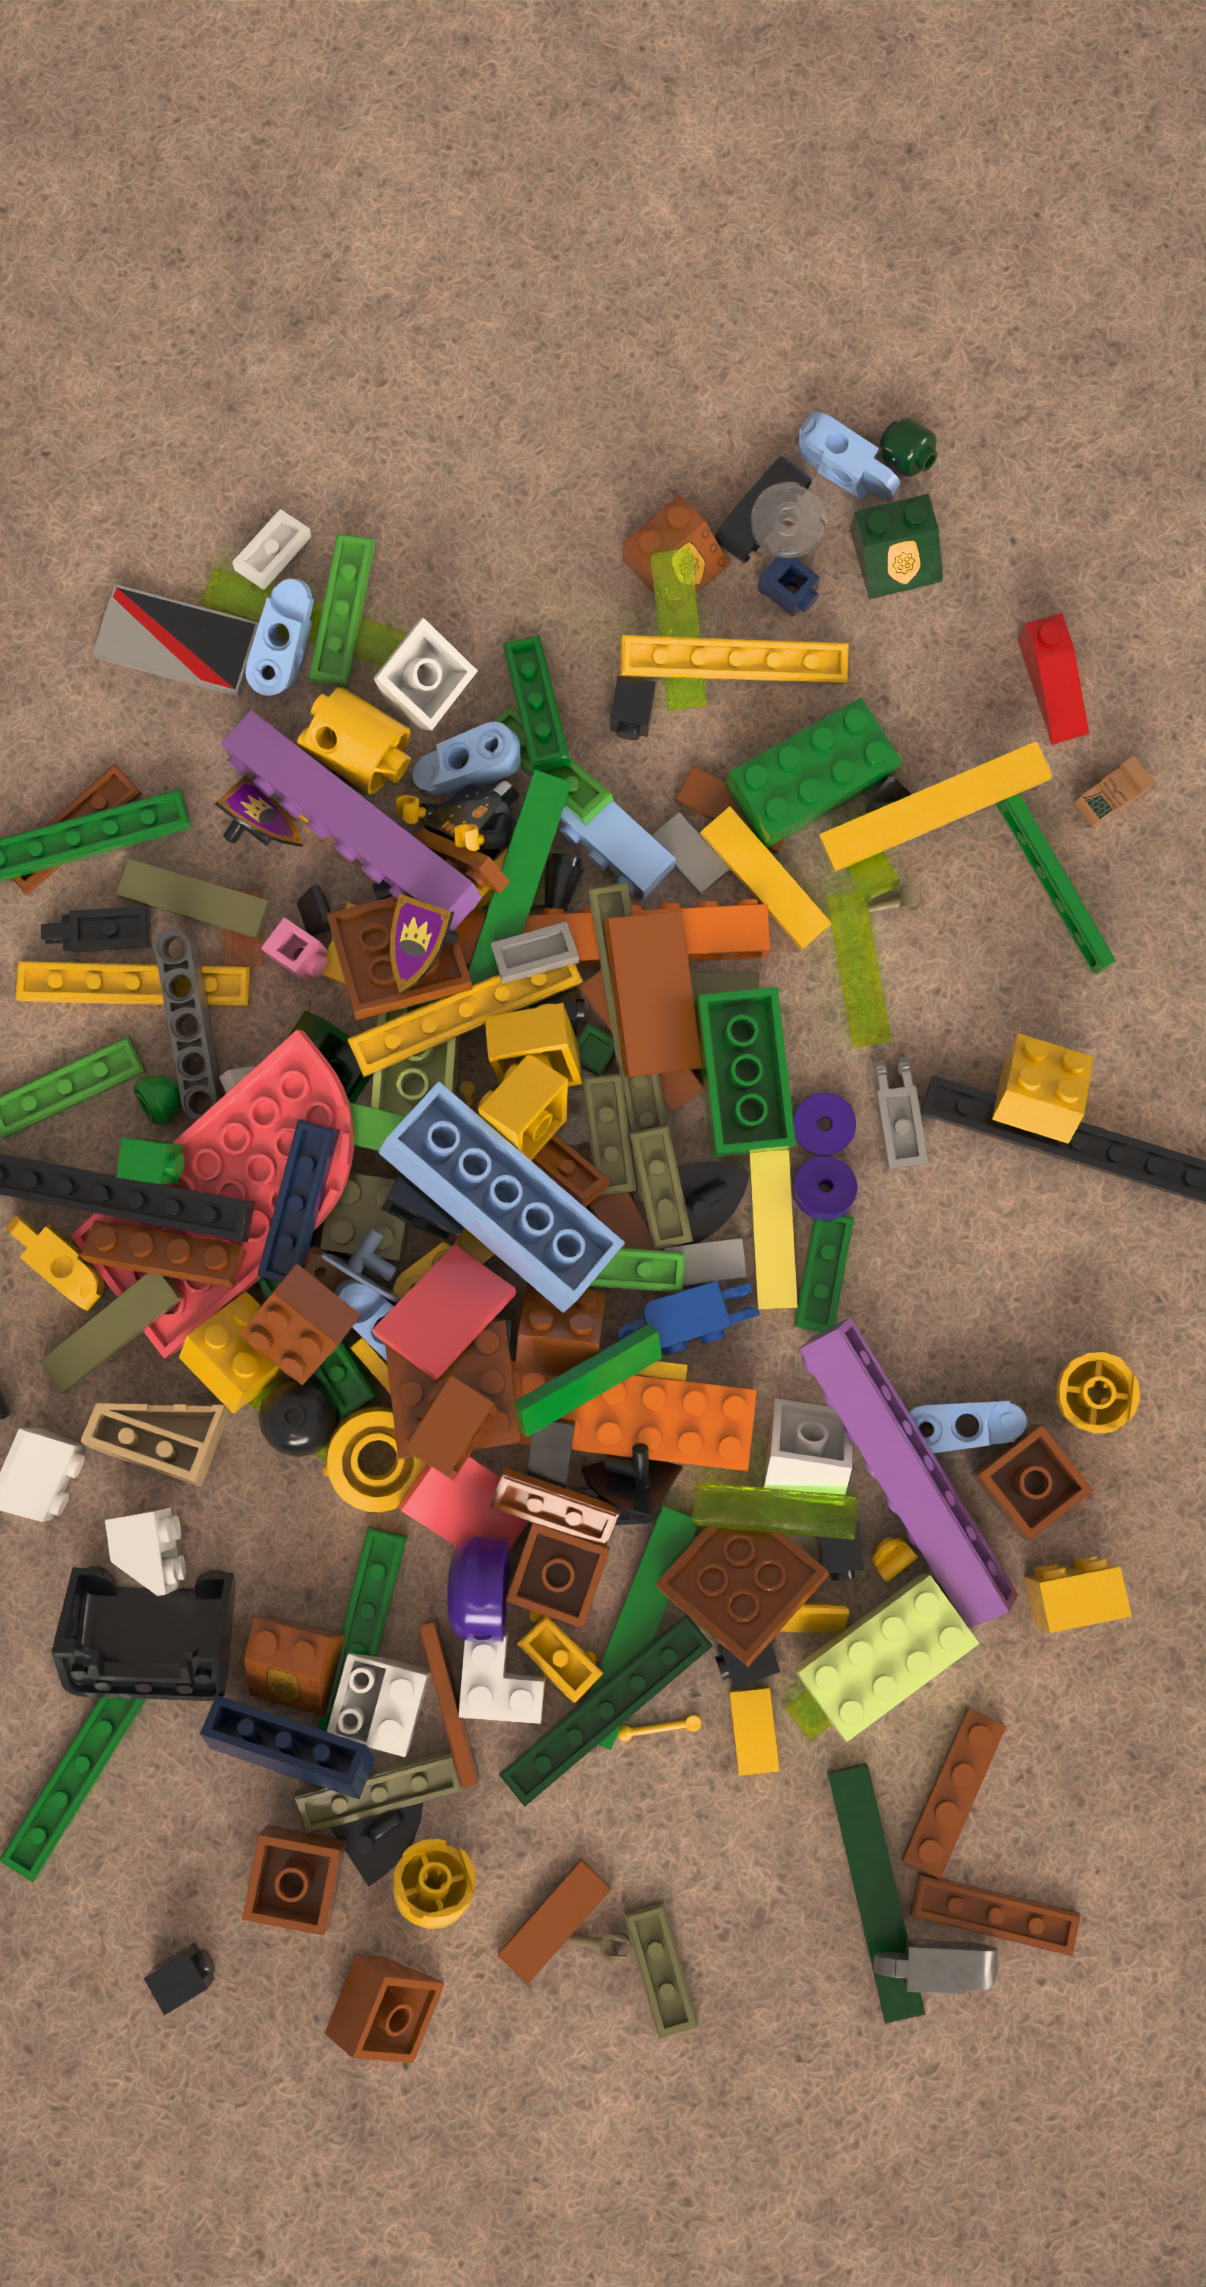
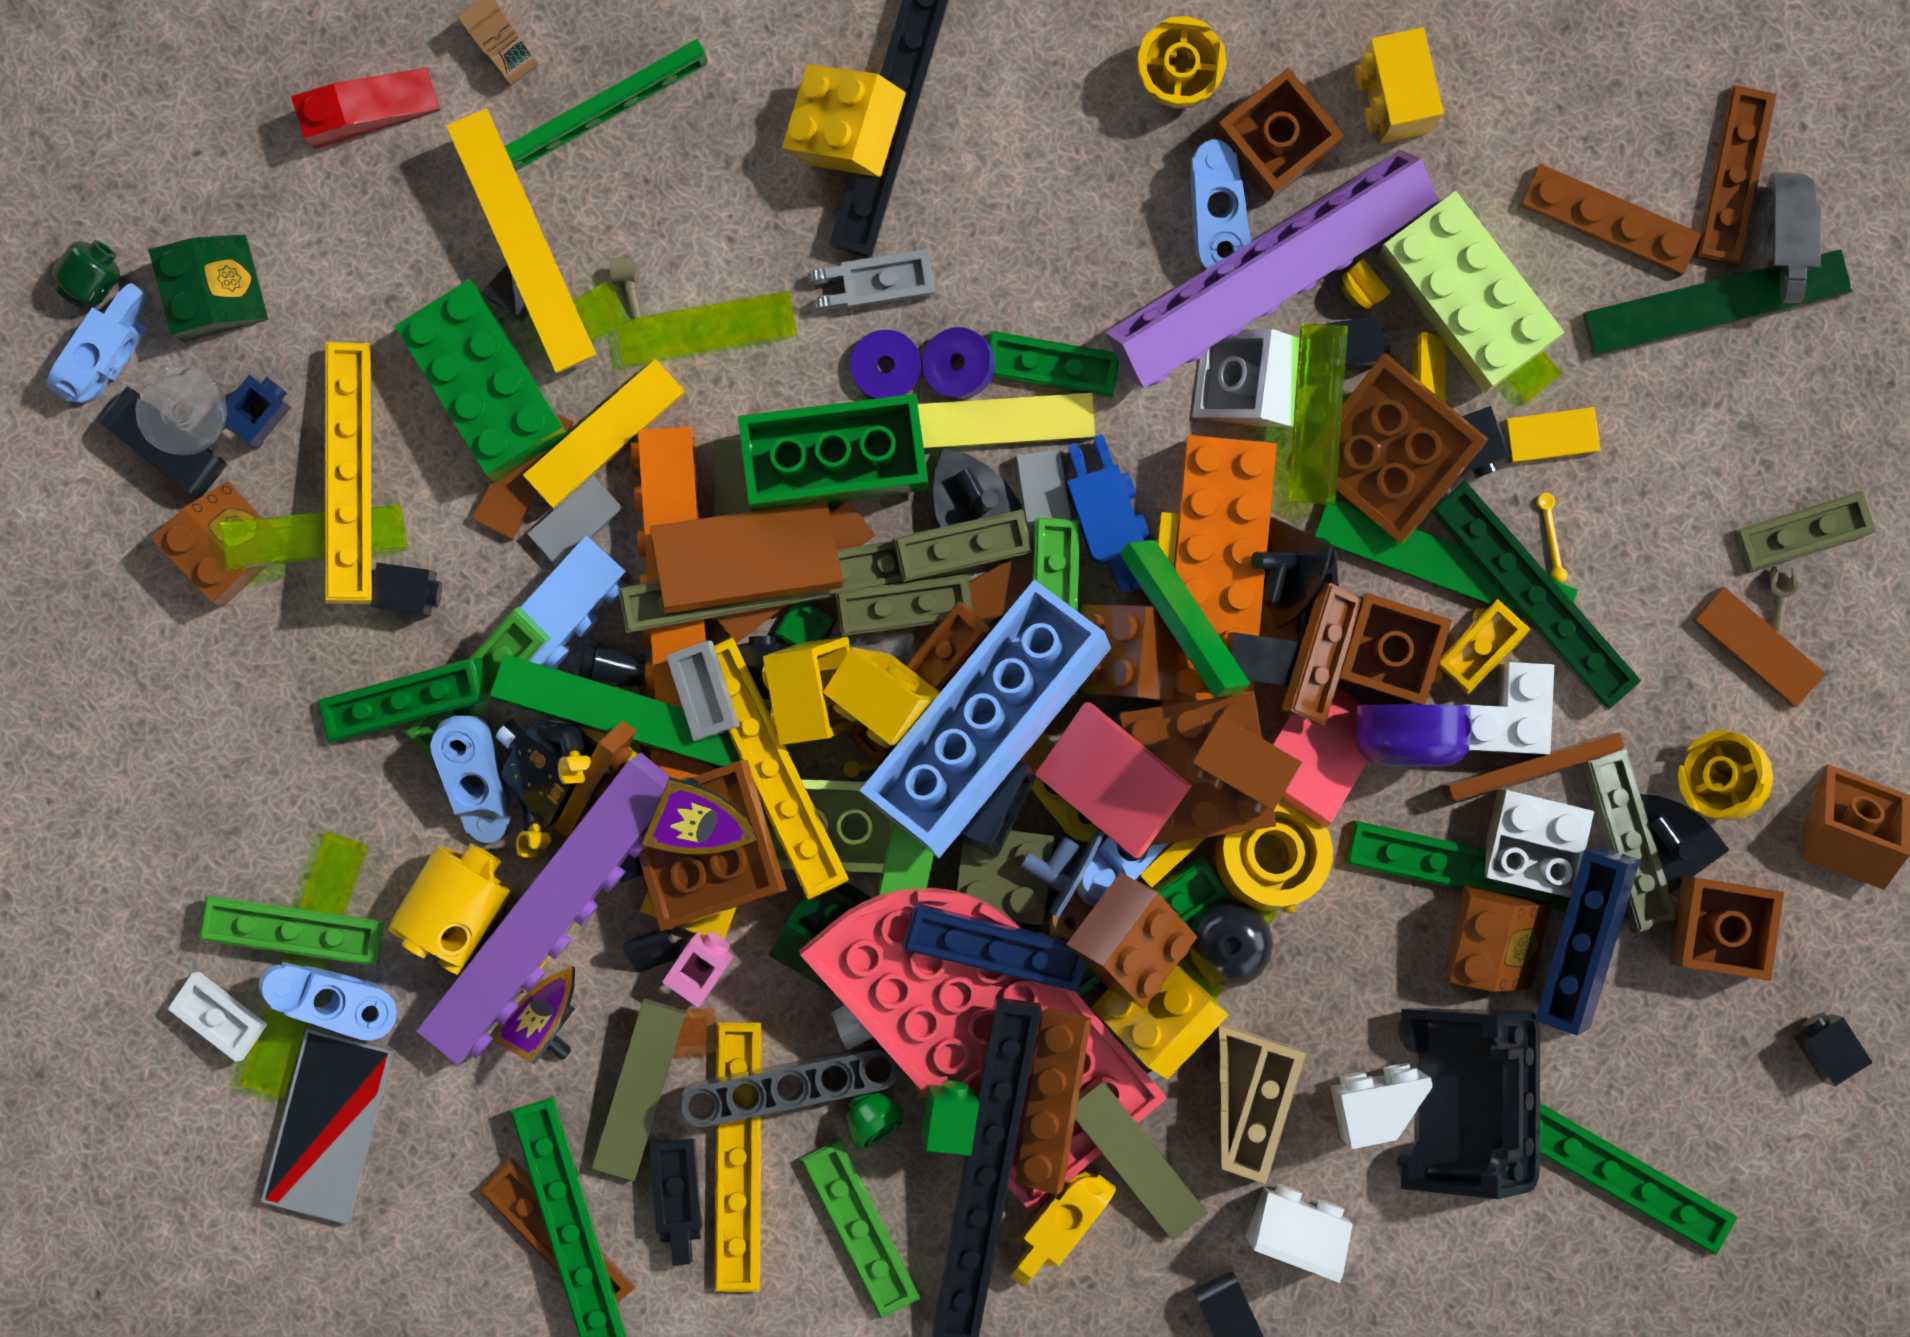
camera: 95 degrees left, 5 degrees up
(423, 677) = (377, 828): white slope -> none

